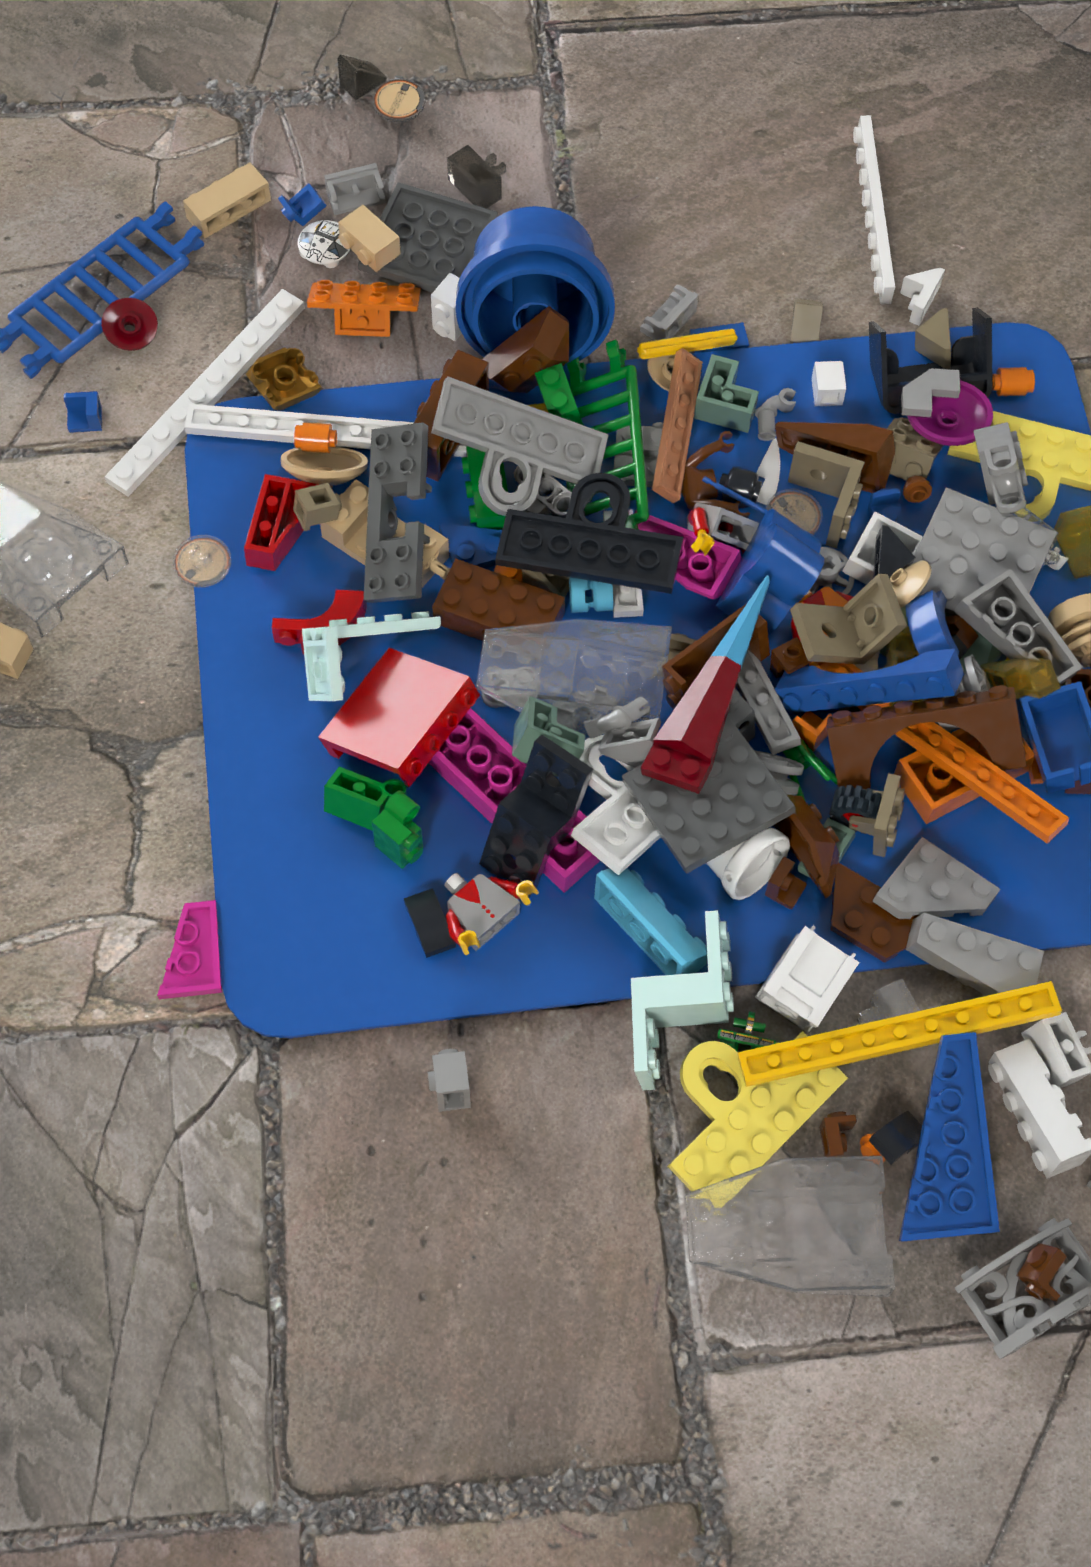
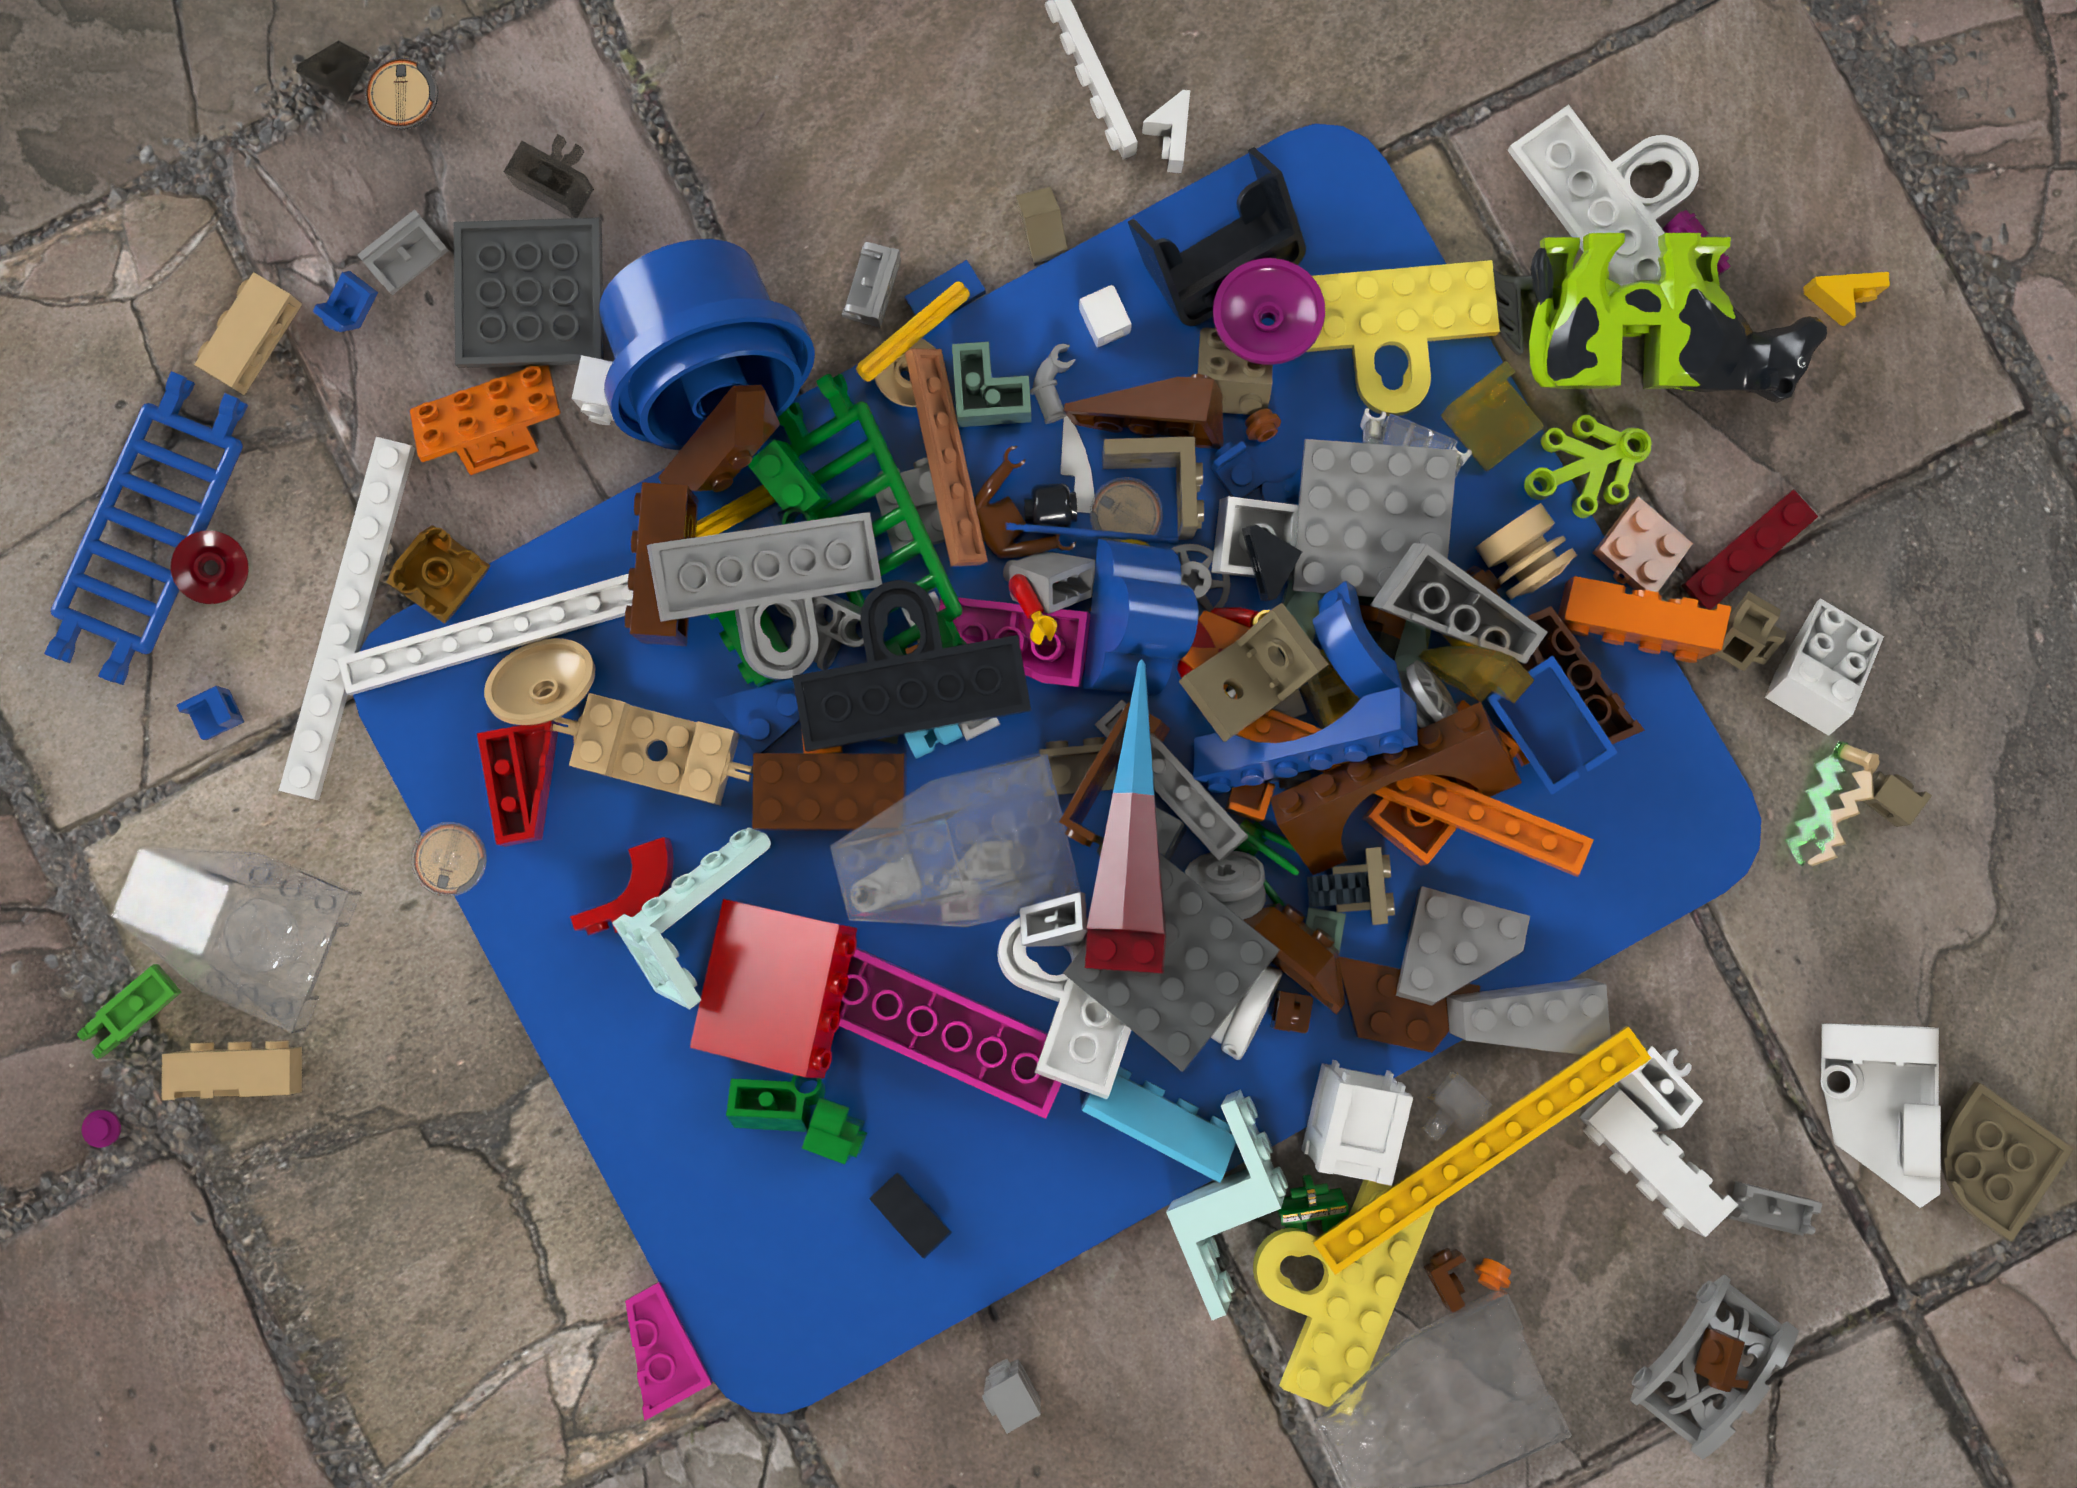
camera: 20 degrees left, 20 degrees up
(315, 437) = (514, 651): orange brick -> none
(316, 505) = (559, 745): dark tan brick -> none
(321, 243) = (399, 345): white dish -> none
(369, 238) = (456, 333): tan brick -> none
(396, 470) = (679, 789): dark grey plate -> none
(483, 907) = (962, 1180): torso -> none
(536, 813) = (986, 1069): black bracket -> none
(541, 718) = (955, 965): sand green brick -> none
(620, 718) = (1033, 901): light grey piece -> none
(788, 658) = (1193, 727): reddish brown bracket -> none
(897, 1137) = (1517, 1255): black slope -> none
(910, 581) = (1307, 590): tan dish -> none
(933, 339) = (1212, 200): dark tan slope -> none
(935, 382) = (1236, 280): light grey tile -> none
(953, 1165) = (1585, 1268): blue wing -> none
(1002, 467) = (1360, 380): light grey brick -> none
(1013, 381) = (1327, 224): orange brick -> none

